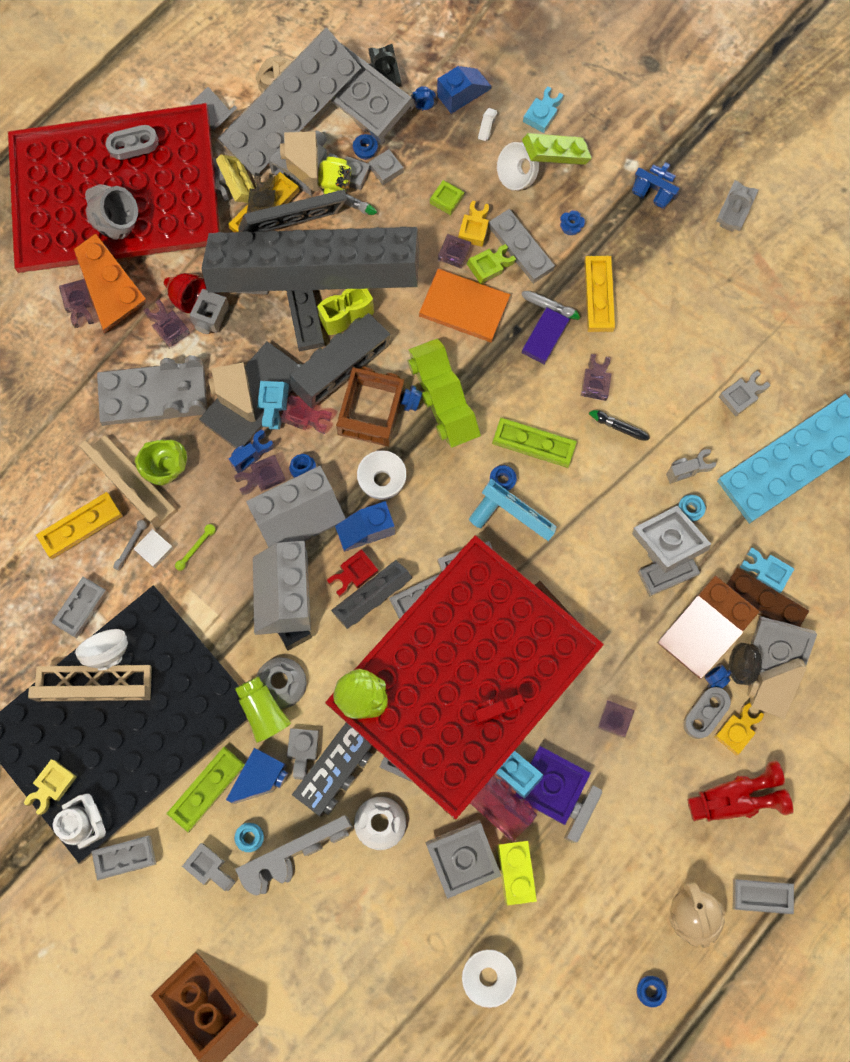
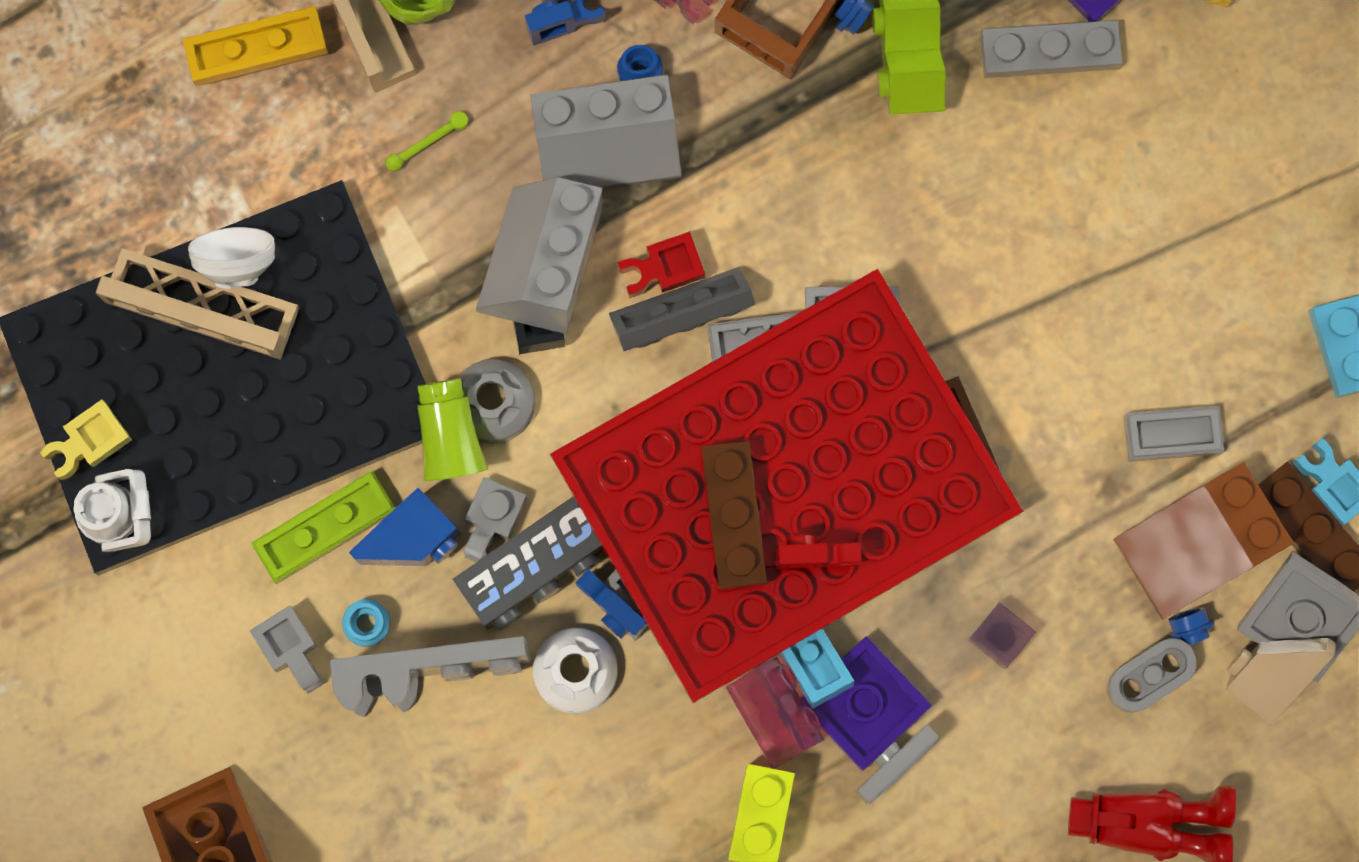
camera: 20 degrees right, 5 degrees up
(79, 607) = (216, 177): light grey plate -> none
(123, 857) = (165, 588): light grey plate -> none
(141, 525) = (353, 78): light grey hinge -> none
(153, 548) = (360, 121): white tile -> none
(264, 473) = (576, 59): plate -> none
(360, 694) = (609, 460): lime hair -> none
(366, 526) = (708, 198): blue slope -> none
(377, 463) = (764, 100): white piece -> none
(395, 782) = (619, 615): none -> blue plate
(442, 702) = (734, 515): none -> reddish brown plate
(463, 859) = (685, 767): light grey hinge -> none
(498, 496) = (938, 218): medium azure piece -> none
(506, 471) = (961, 179): blue plate -> none
(526, 384) = (1051, 49): none -> light grey plate
(534, 442) = (1029, 150): lime tile -> none
(596, 380) = (1168, 79): plate -> none
(602, 418) = (1157, 146): black piece -> none
(671, 539) = (1195, 380): light grey hinge -> none
(685, 469) = (1260, 274): light grey plate -> none
(695, 501) = (1255, 329): medium azure plate -> none
(737, 732) = (1190, 722): yellow plate -> none
(745, 664) = (1241, 619): clear smoke piece -> none

